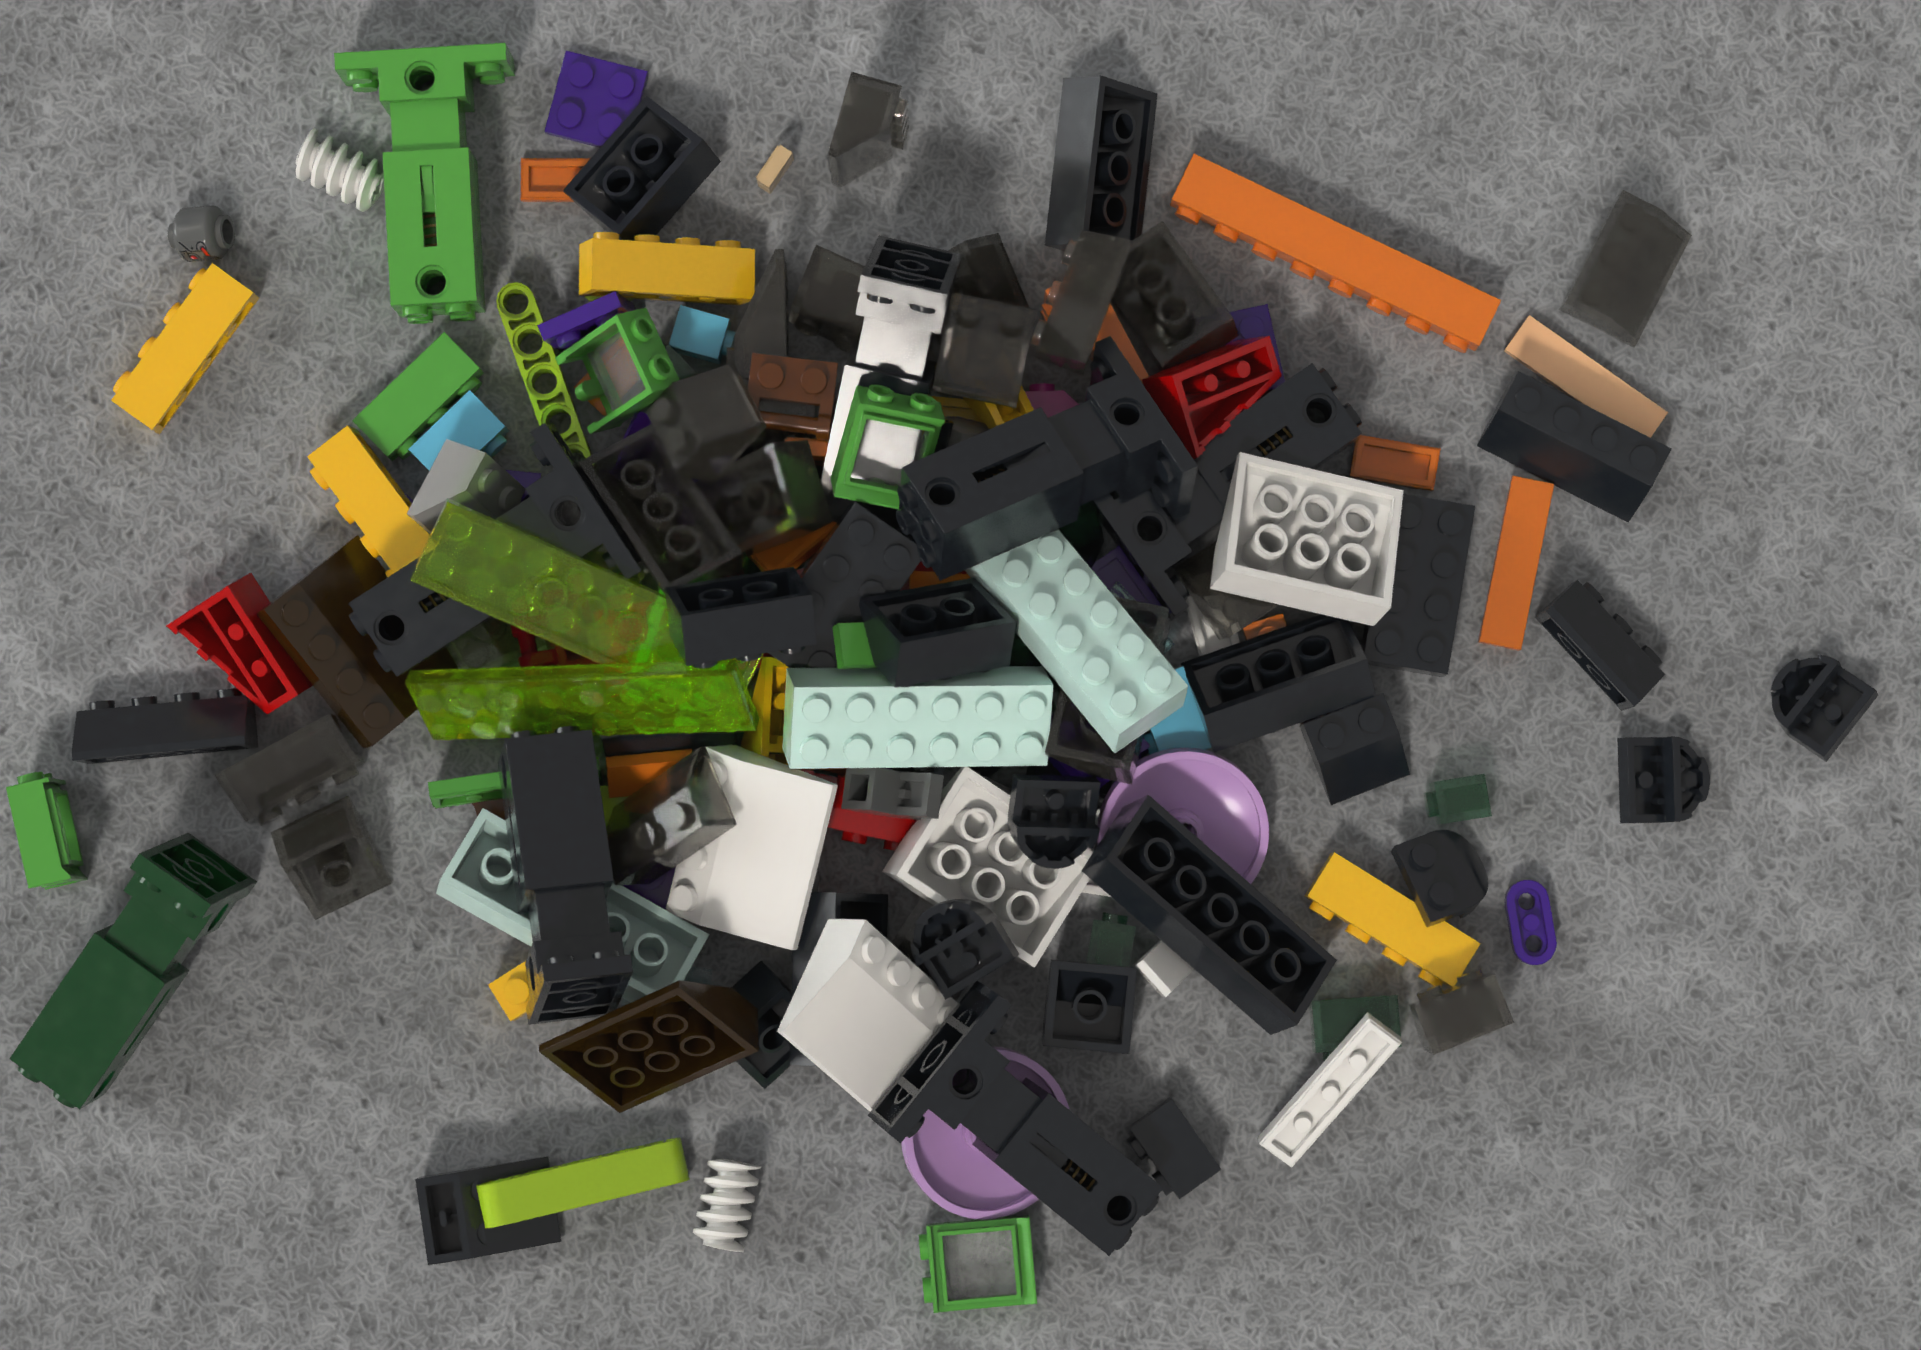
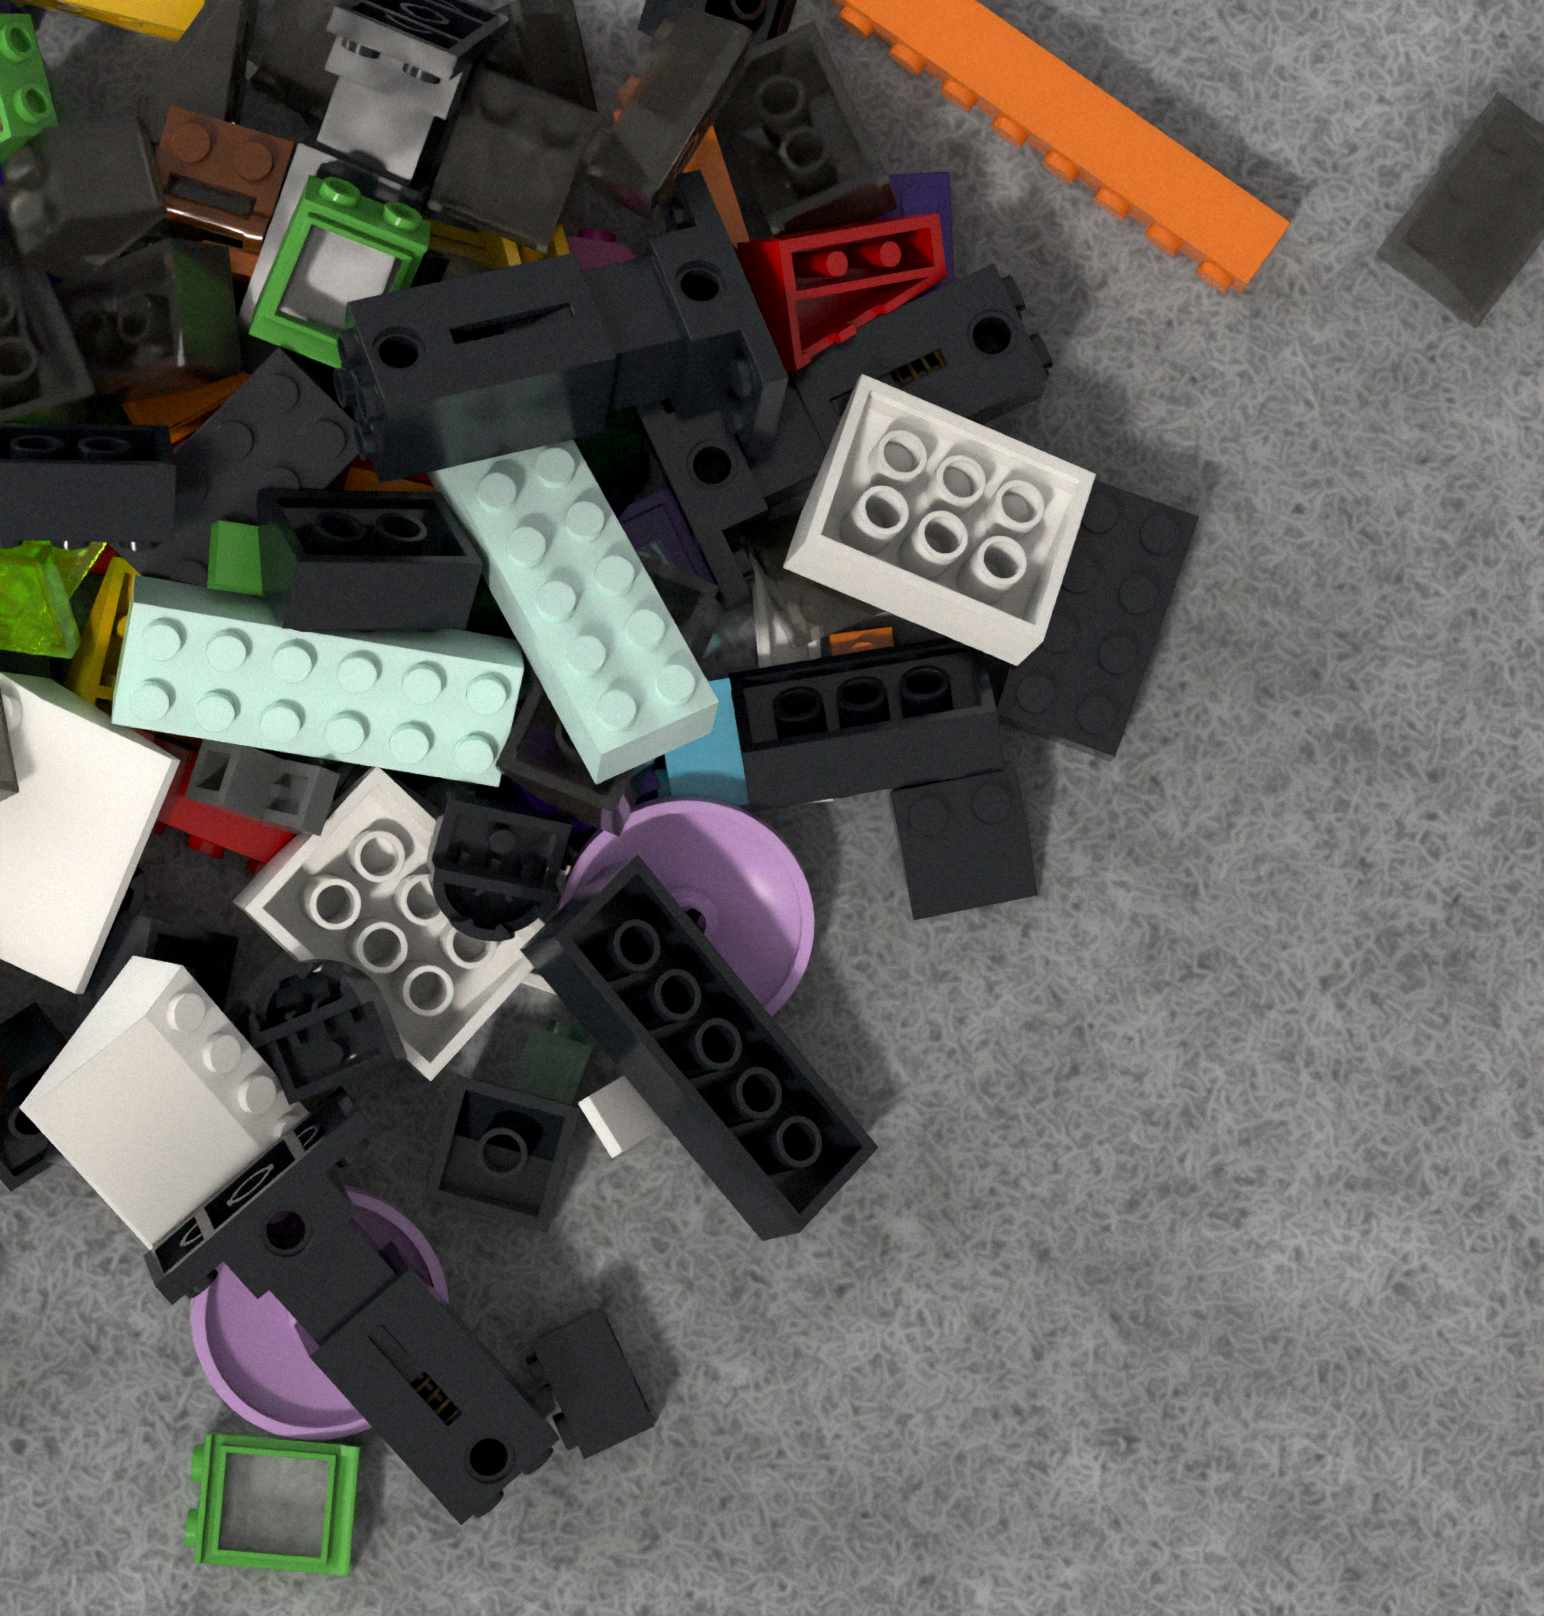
camera: 10 degrees right, 0 degrees up
(701, 335) = (109, 72): medium azure brick -> none
(1329, 1089) = (835, 1336): white tile -> none
(1335, 1018) = (890, 1248): clear green brick -> none
(1391, 920) = (970, 1103): yellow brick -> none
(1395, 462) = (1095, 436): orange tile -> none
(1442, 875) = (1056, 1050): black slope -> none
(1458, 799) = (1099, 944): clear green brick -> none
(1459, 1012) = (1045, 1255): clear smoke slope -> none
(1516, 563) = (1247, 613): orange tile -> none
(1529, 922) = (1175, 1142): dark purple plate -> none
(1573, 446) = (1360, 456): black slope -> none
(1582, 377) = (1396, 365): light nougat tile -> none
(1601, 645) = (1350, 752): black slope -> none
(1660, 779) = (1401, 966): black slope -> none

